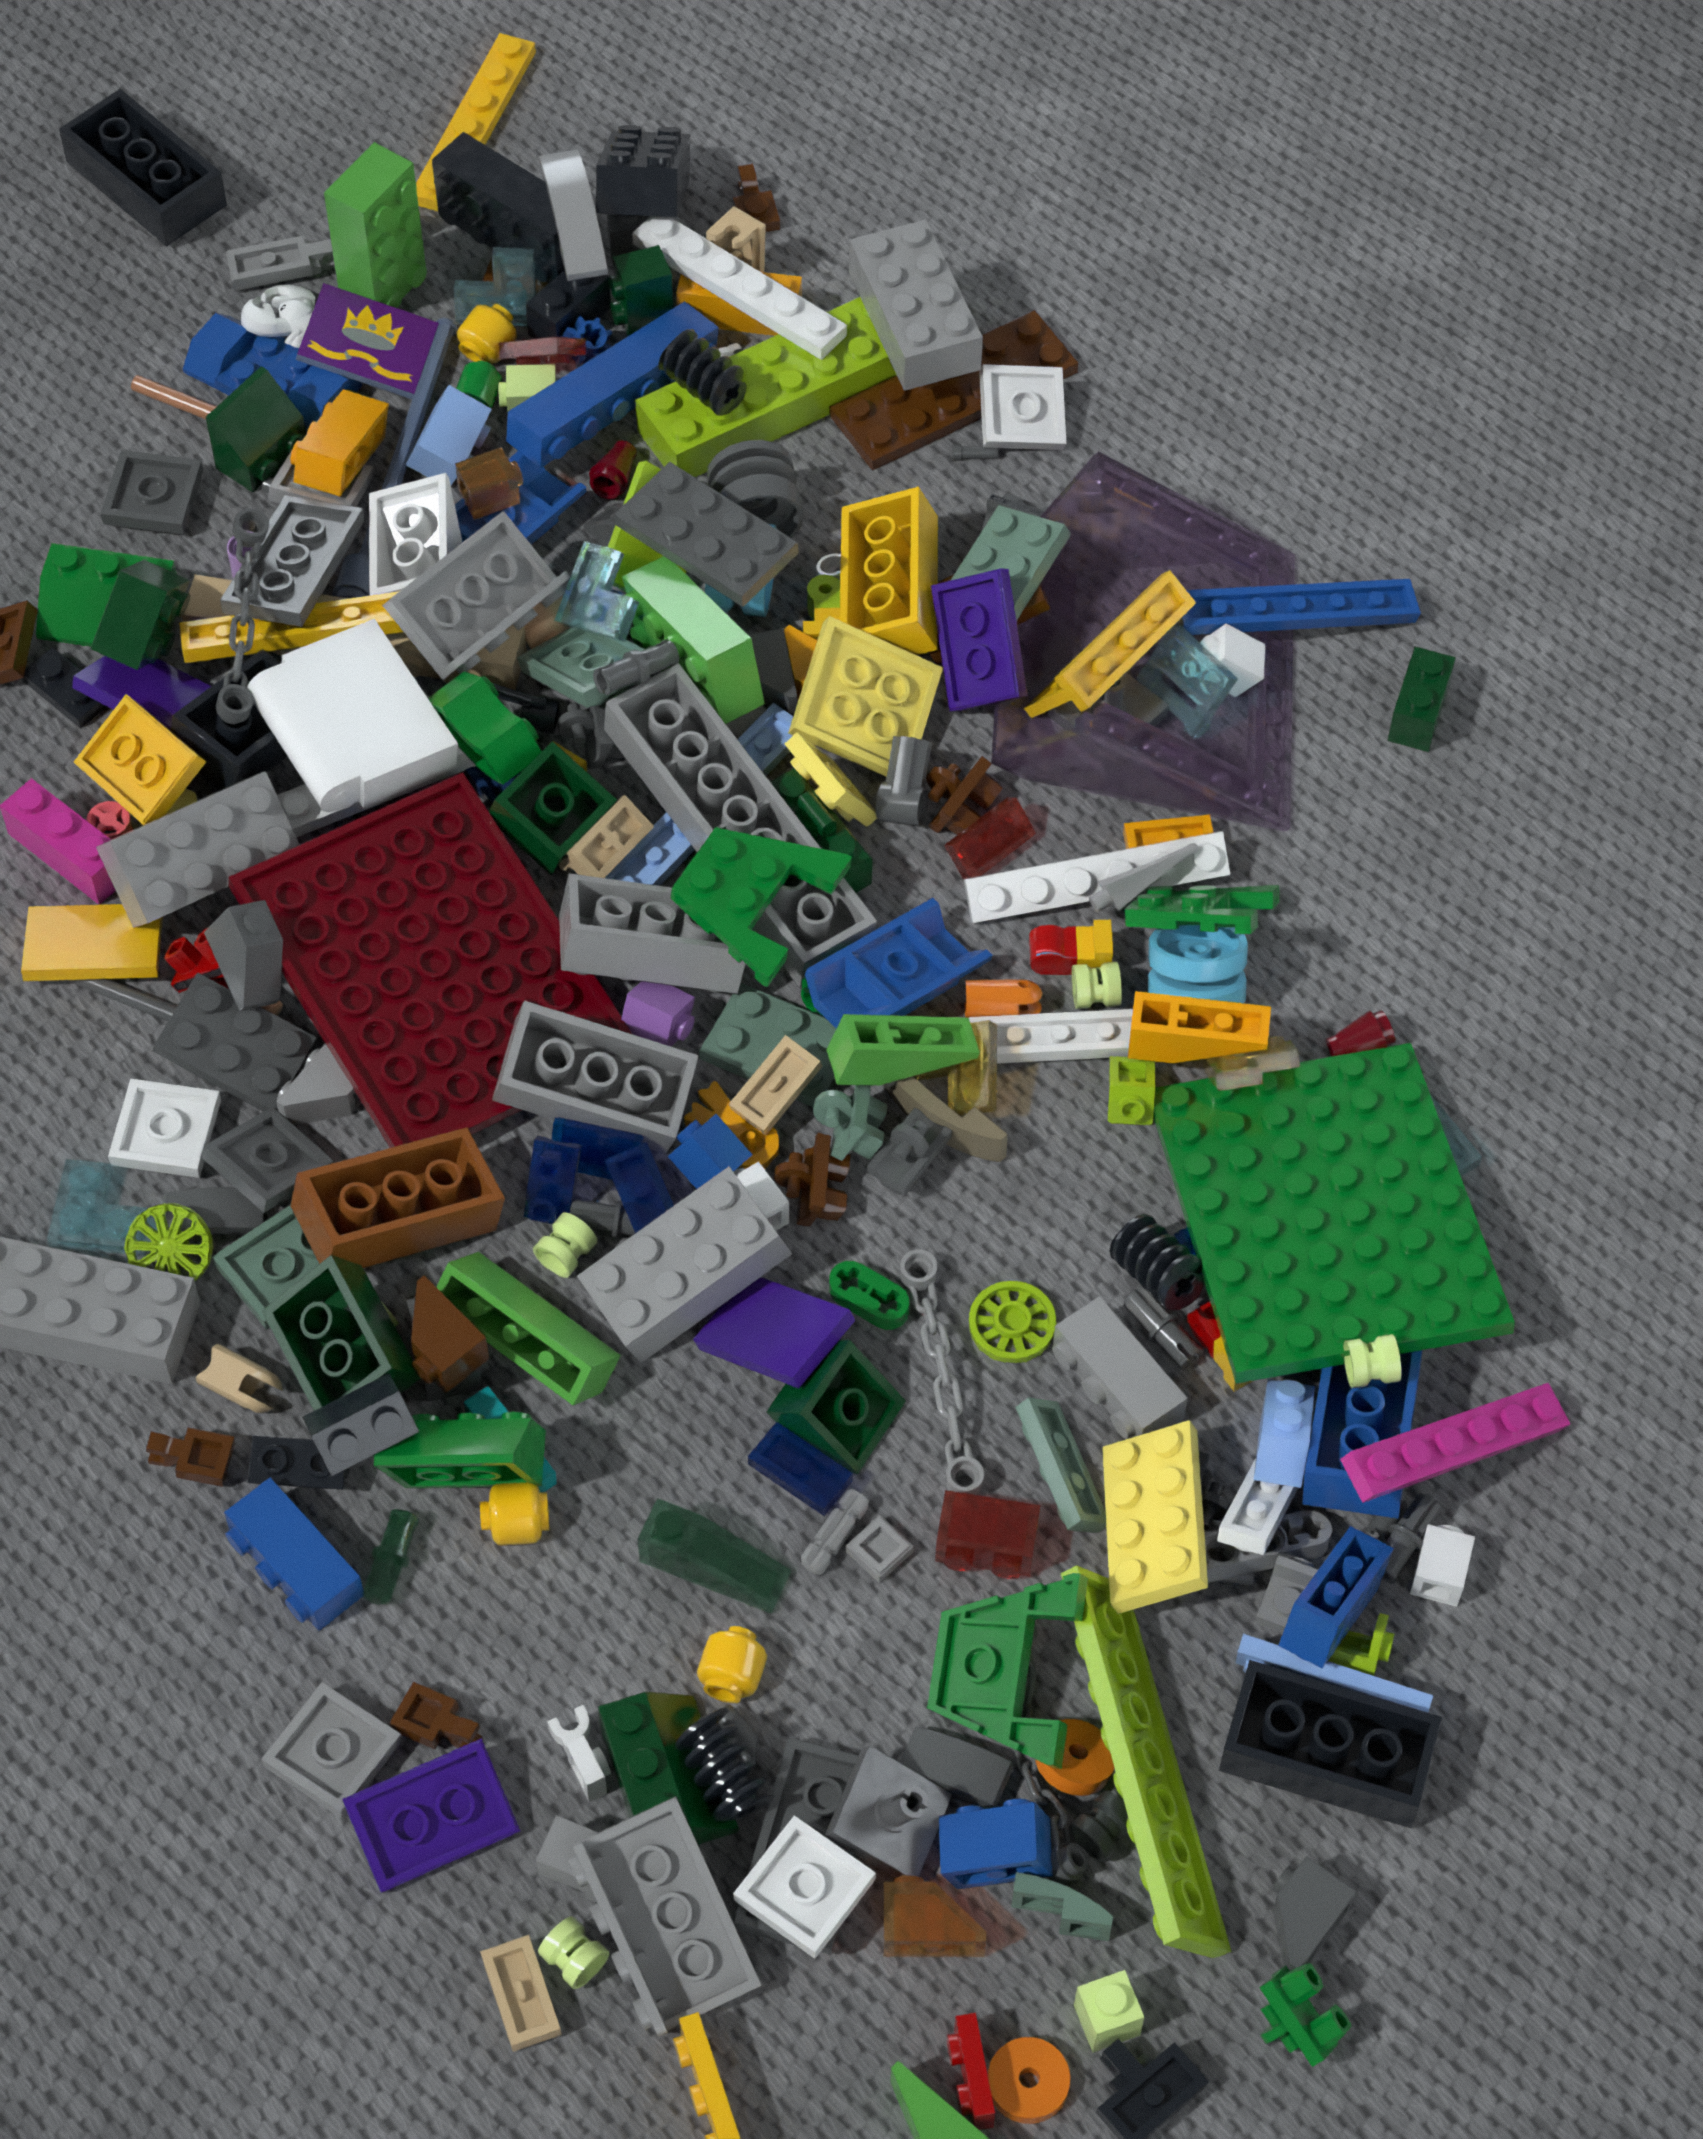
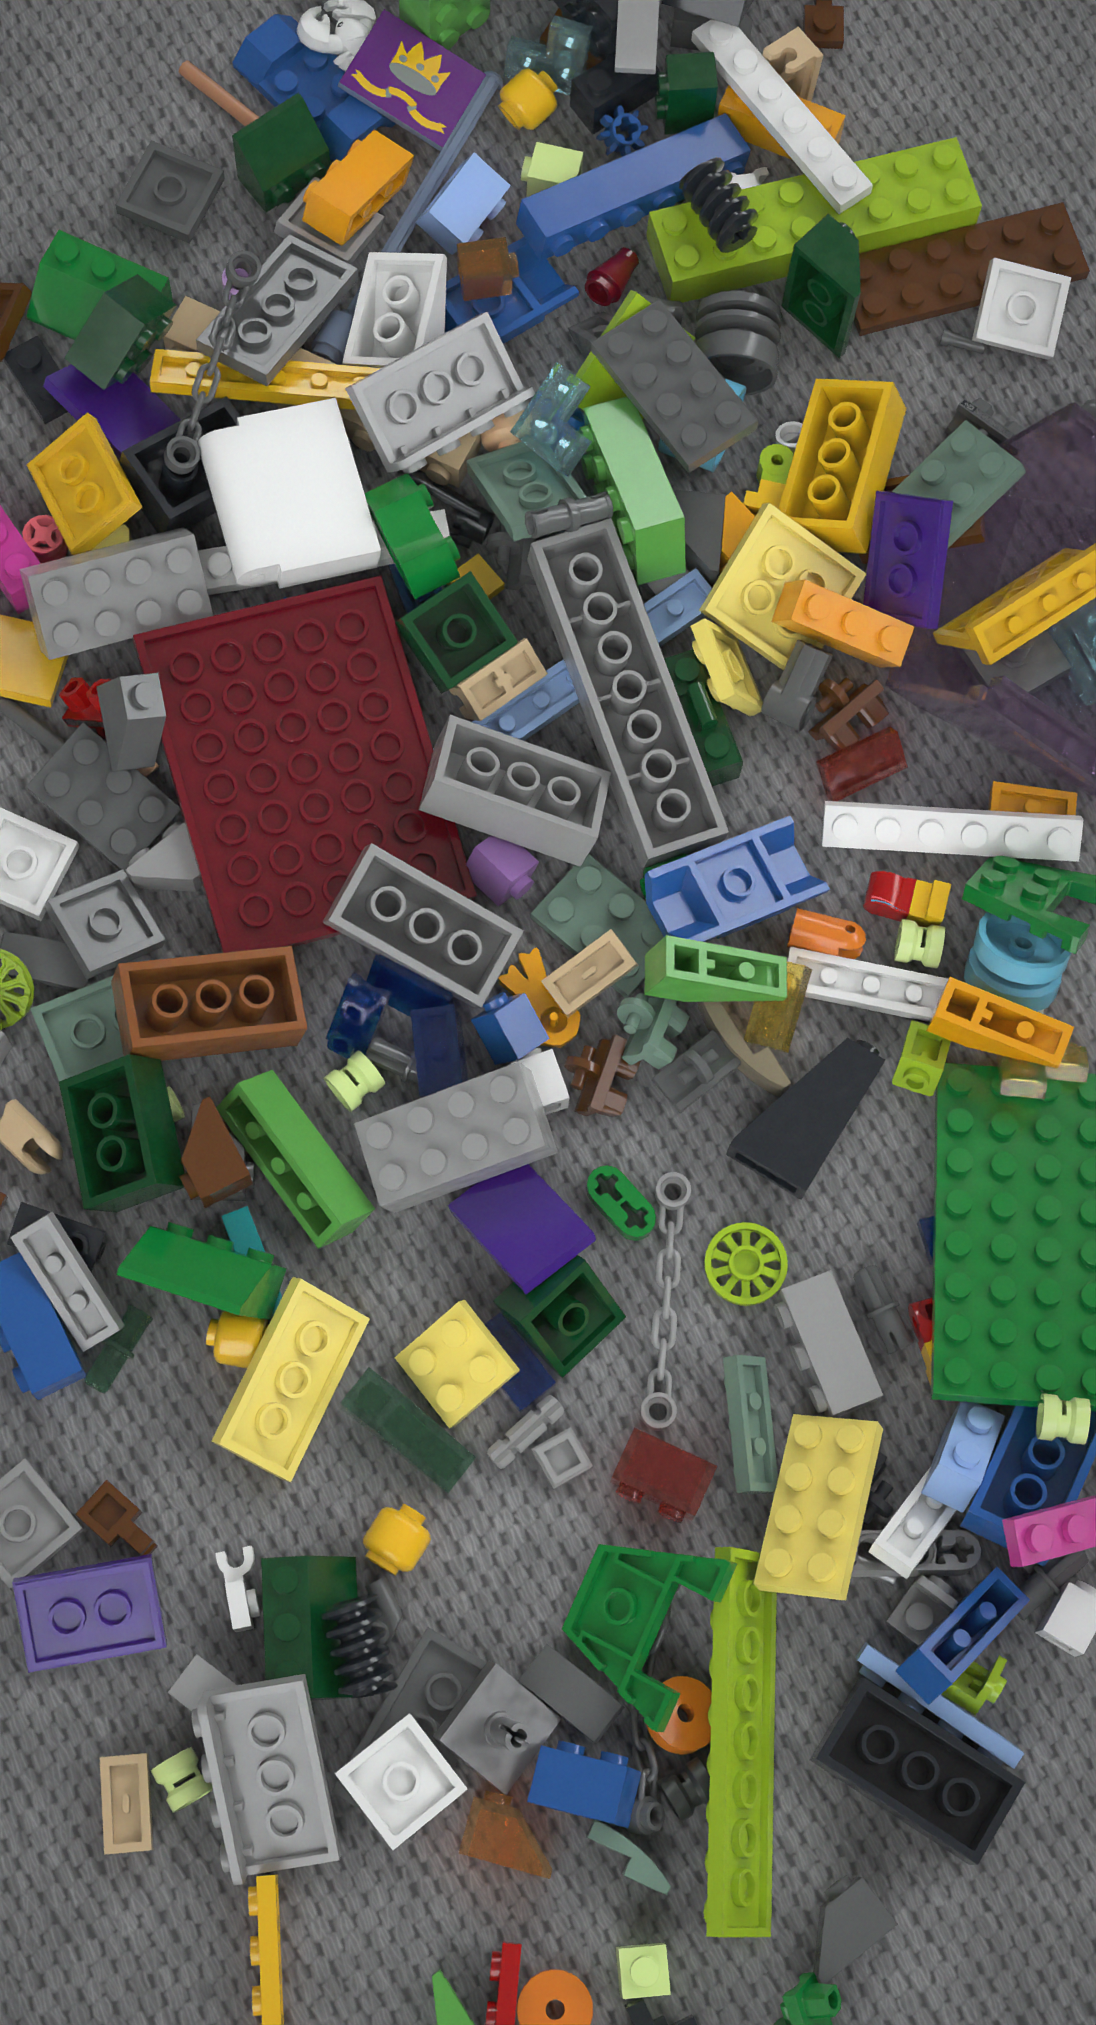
camera: 10 degrees right, 15 degrees up
(322, 1496) = (67, 1281): none -> light grey plate
(360, 1424) = (114, 1230): black brick -> none
(480, 382) = (506, 153): green brick -> none
(553, 349) = (565, 131): clear red plate -> none
(579, 1536) = (291, 1379): none -> light yellow plate
(736, 881) = (603, 764): green wing -> none
(746, 1481) = (457, 1363): none -> light yellow plate
(826, 421) = (825, 283): none -> dark green slope
(915, 304) = (945, 180): light grey brick -> none
(933, 713) = (842, 624): none -> light orange brick
(1032, 1174) = (804, 1124): none -> black slope
(1124, 887) = (975, 852): light grey piece -> none
(1158, 1262) = (895, 1249): black piece -> none

